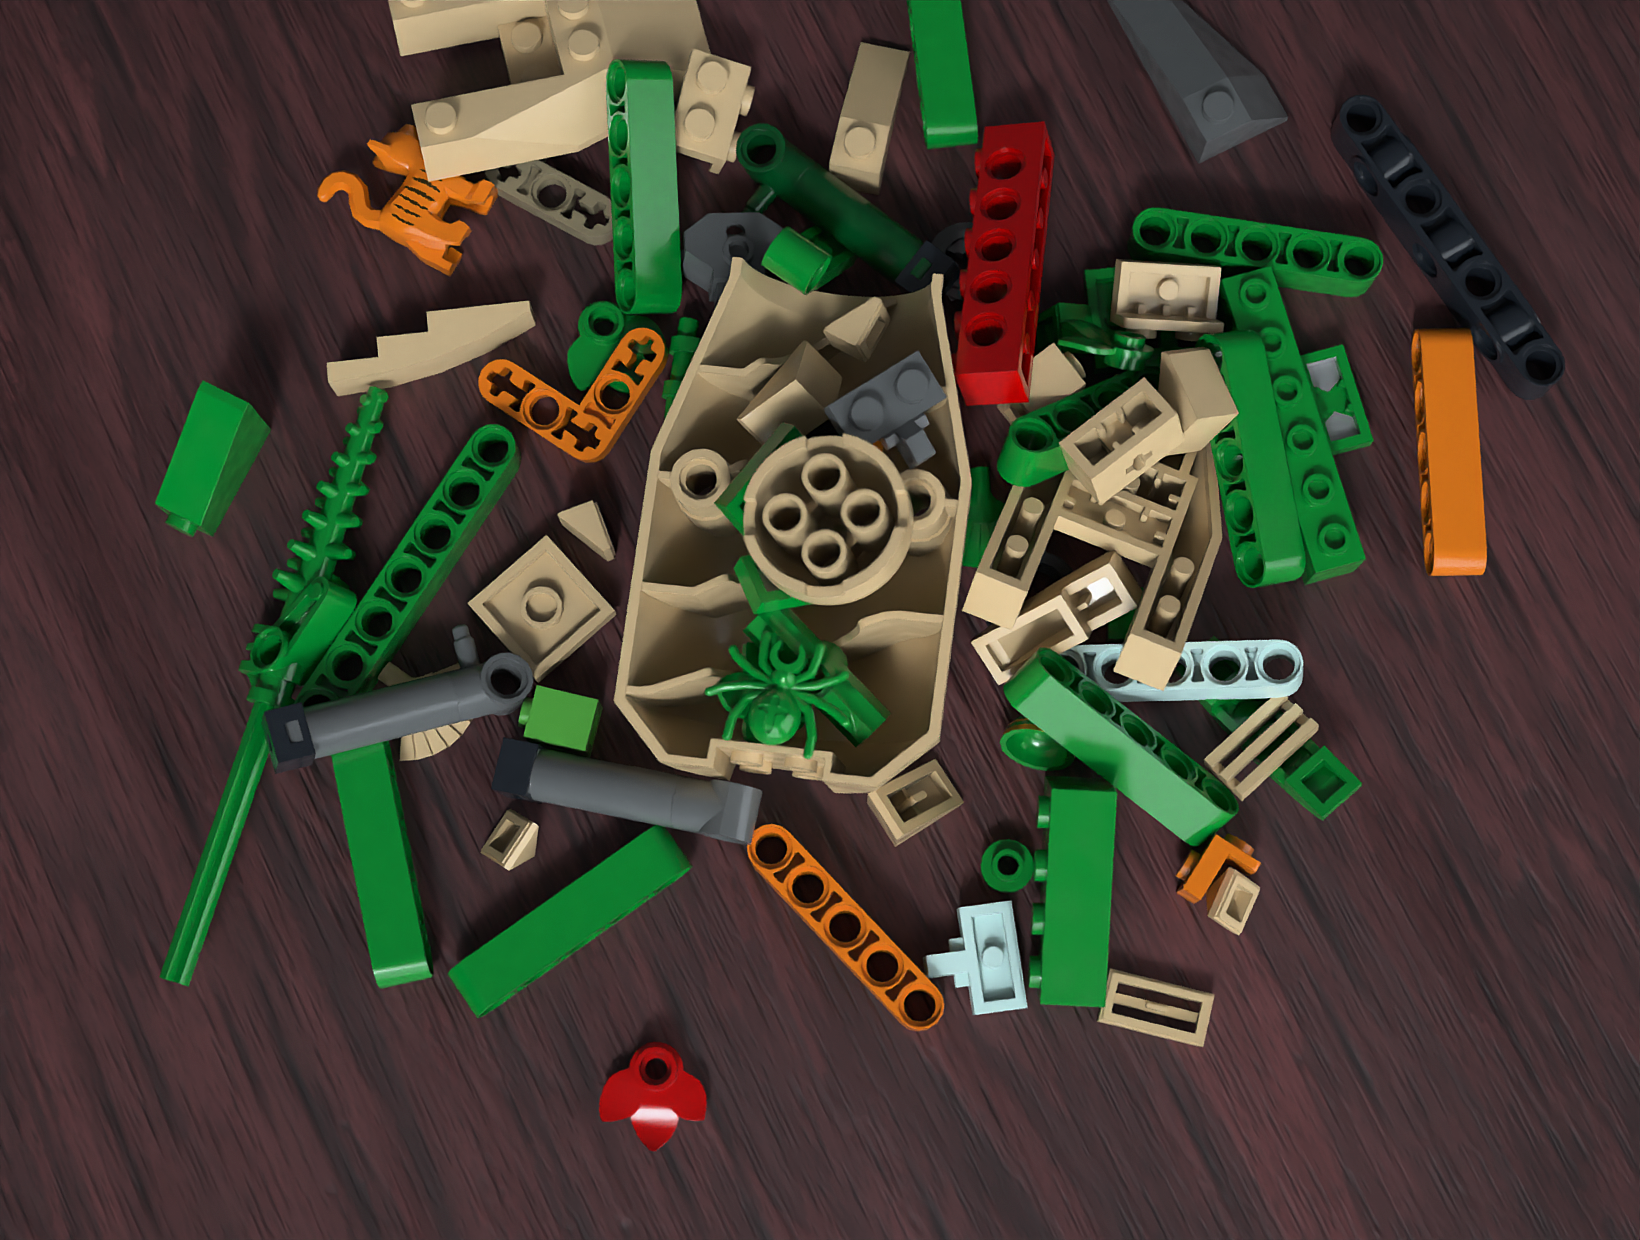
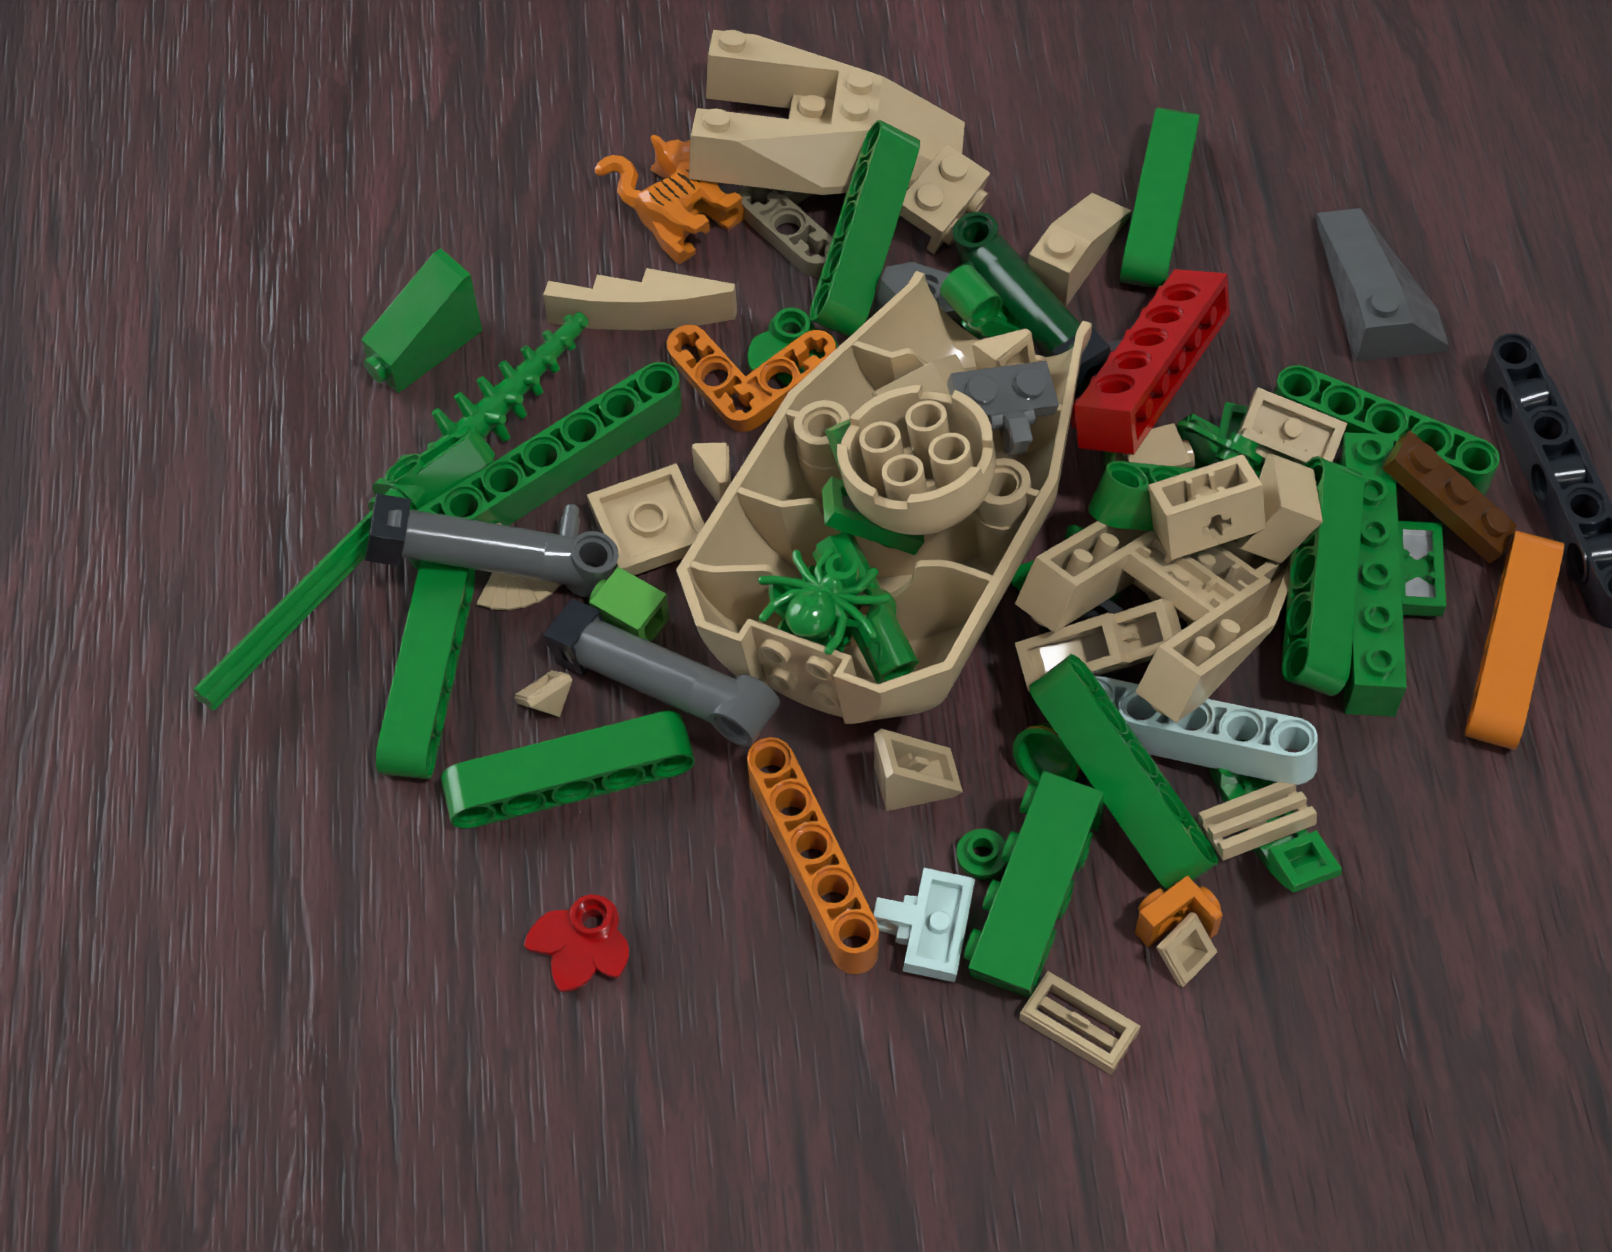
camera: 20 degrees right, 20 degrees down
(1344, 315) = (1450, 496): none -> reddish brown plate

